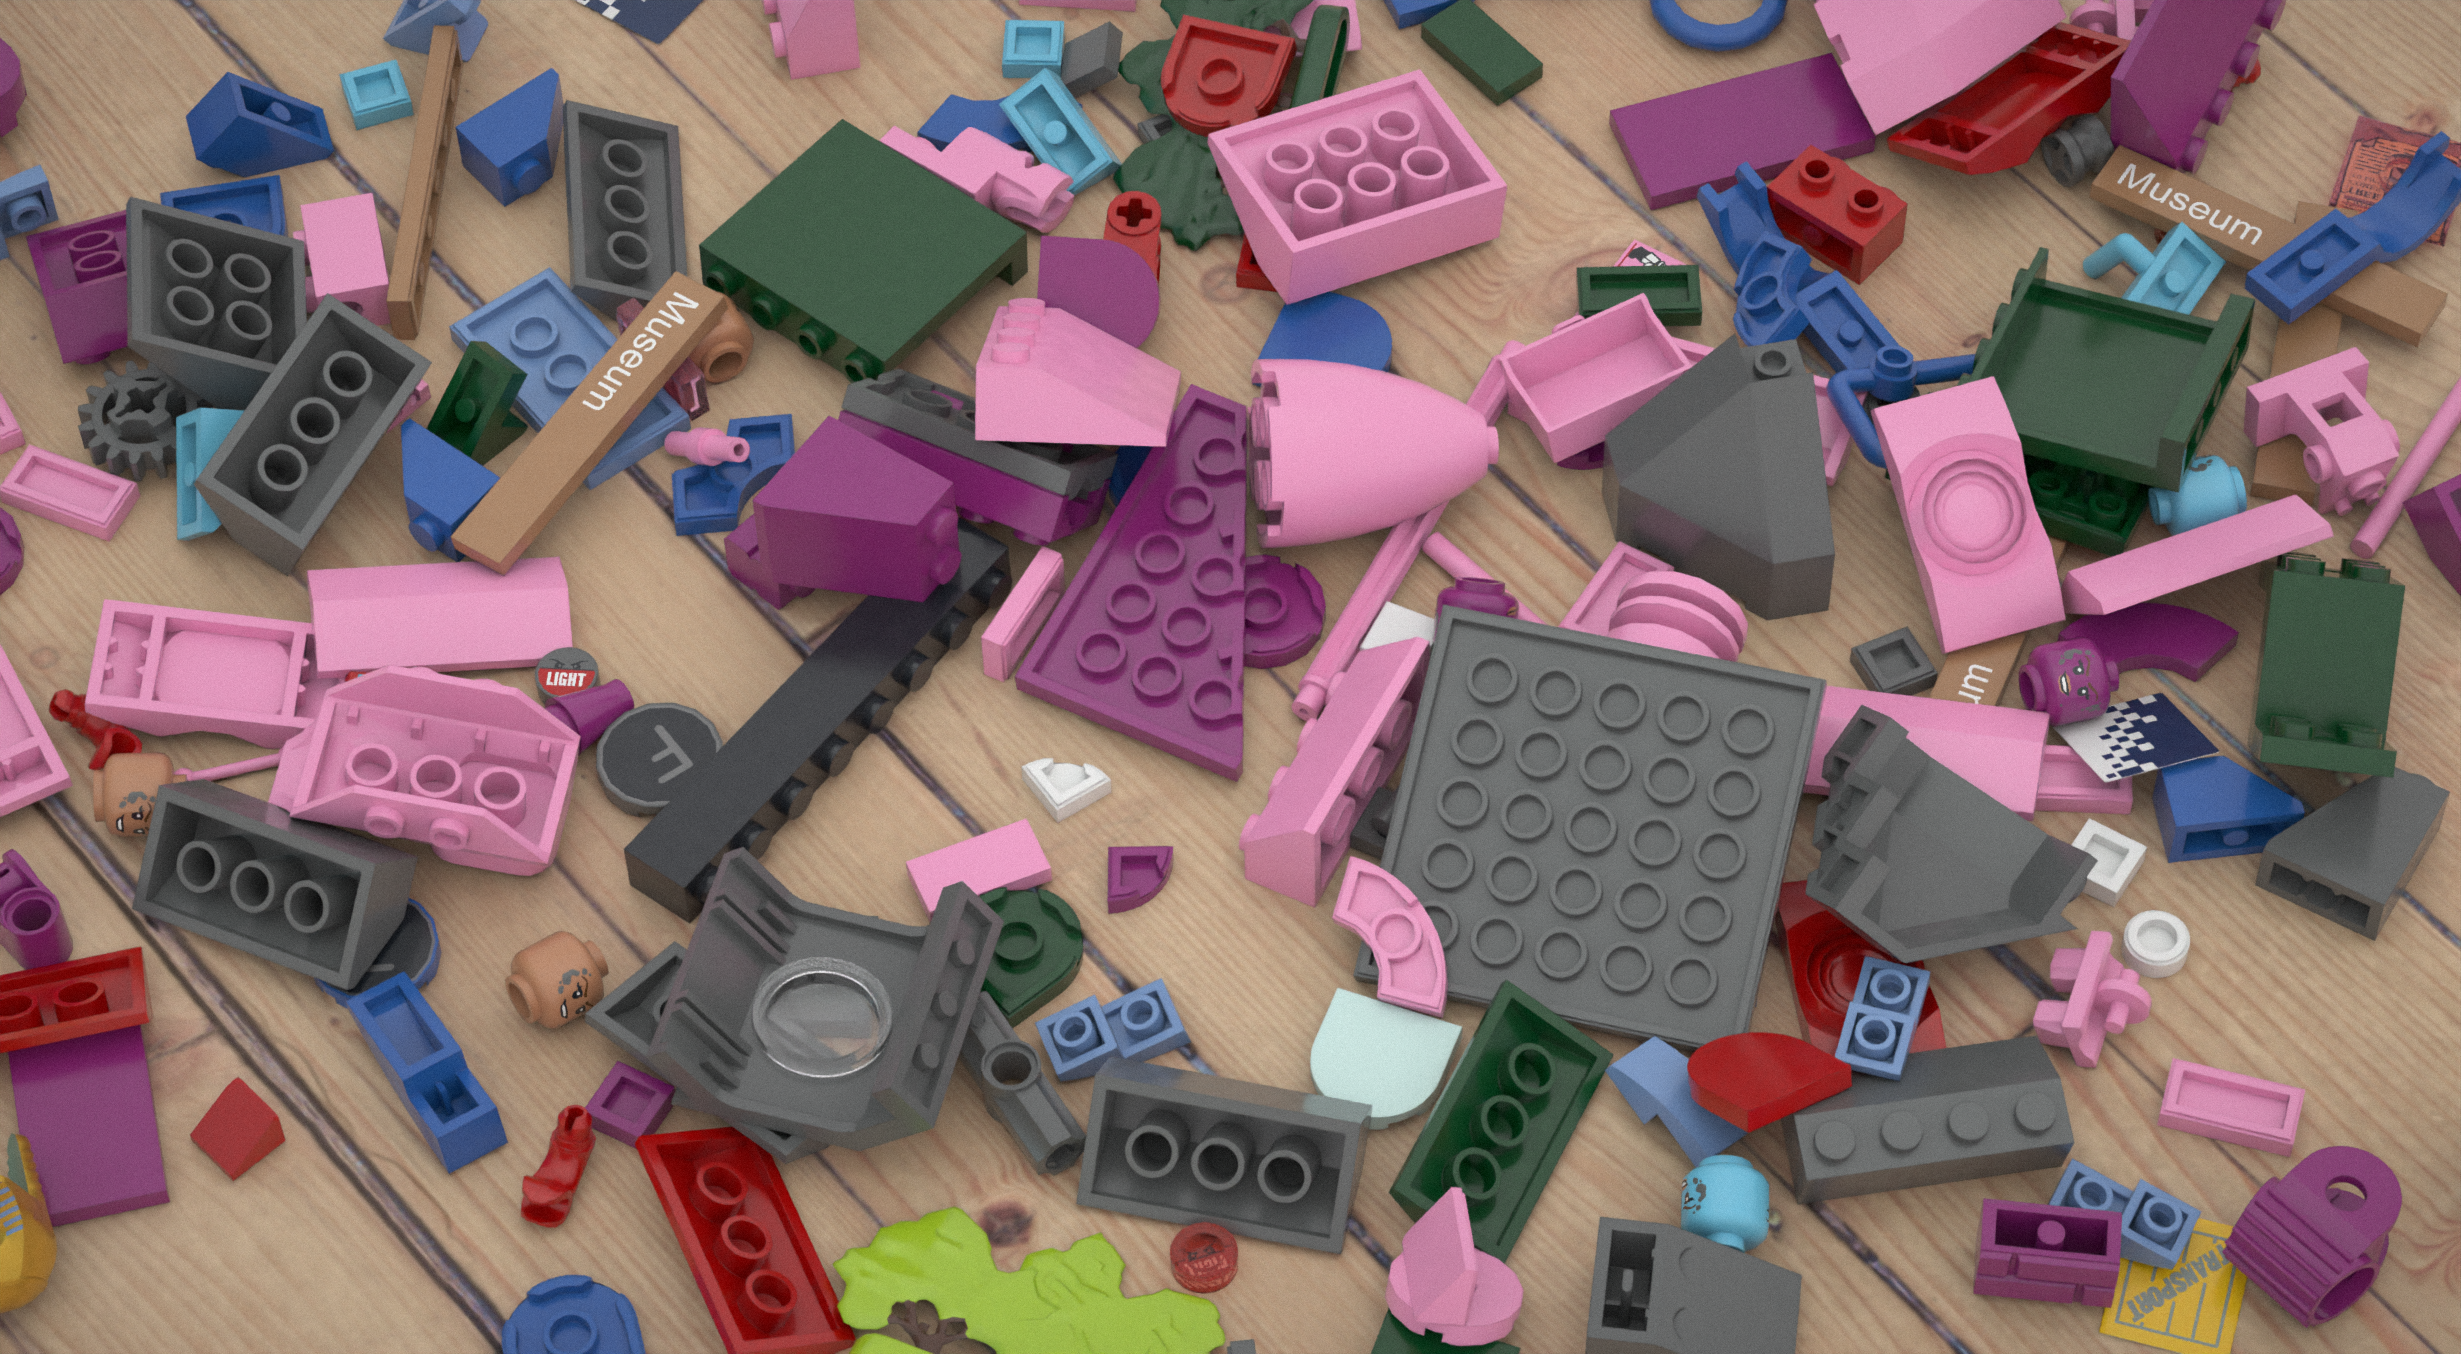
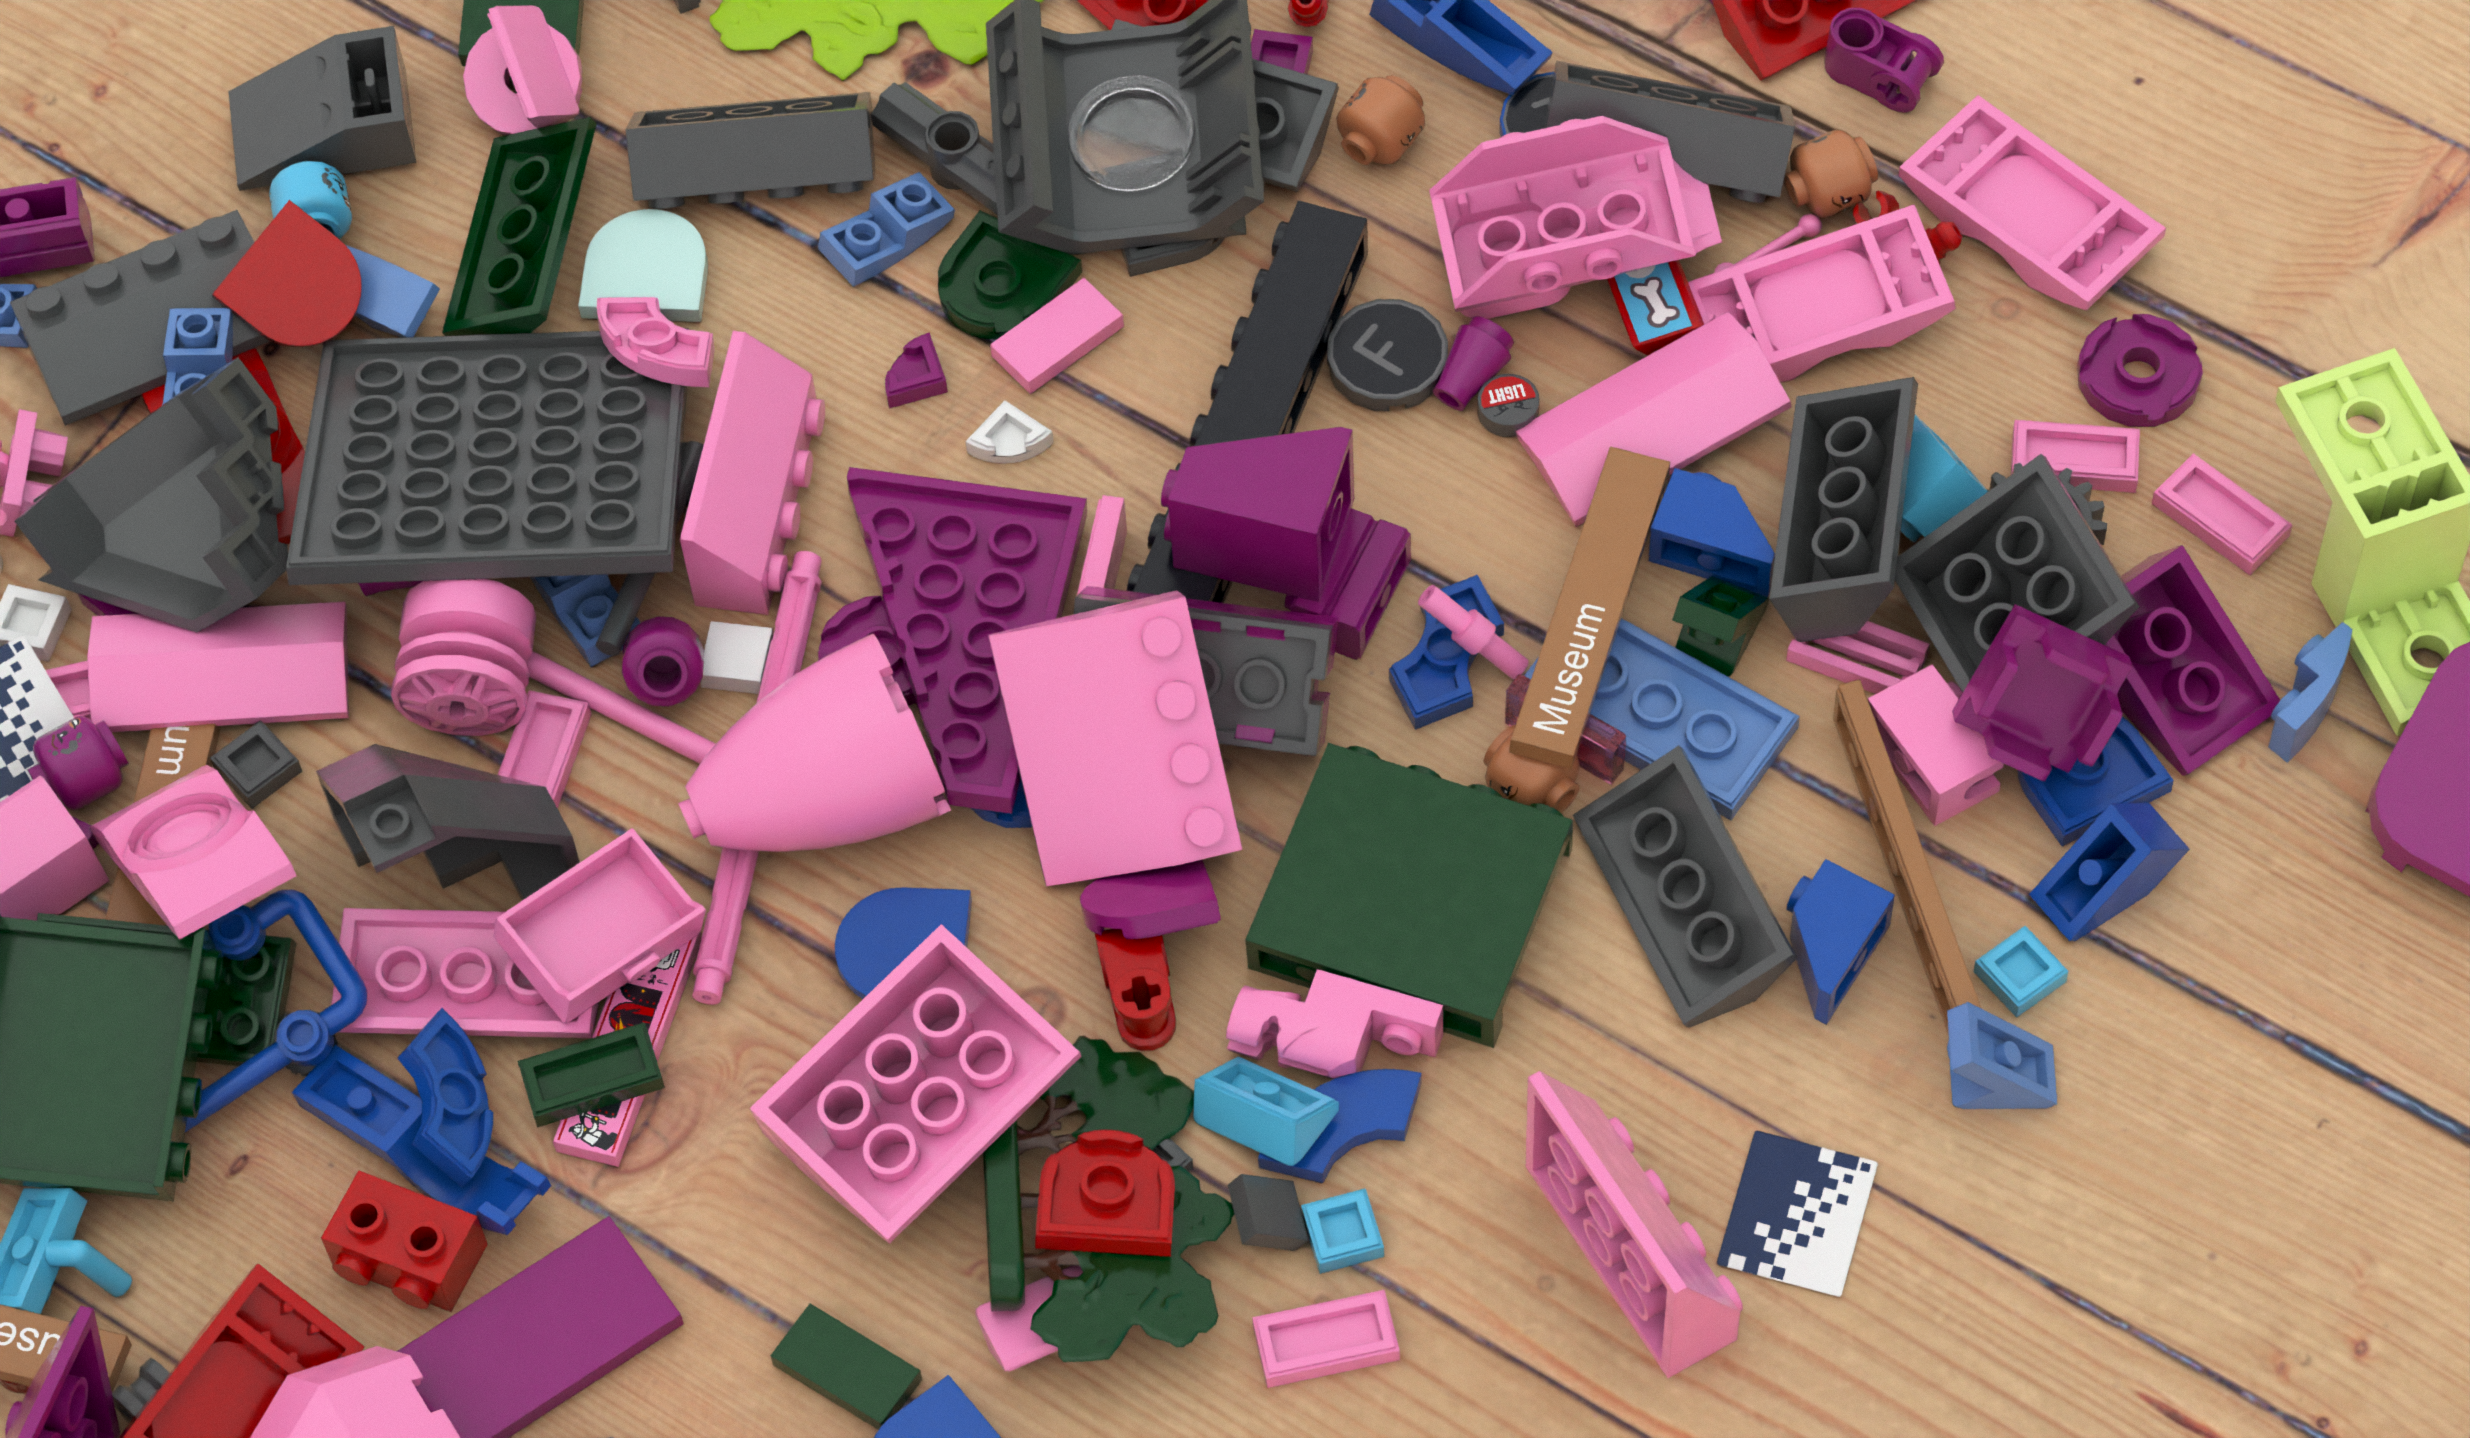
camera: 165 degrees right, 5 degrees up
(211, 183) = (2044, 695): none -> magenta panel
(1204, 1258) = (747, 76): clear red tile -> none

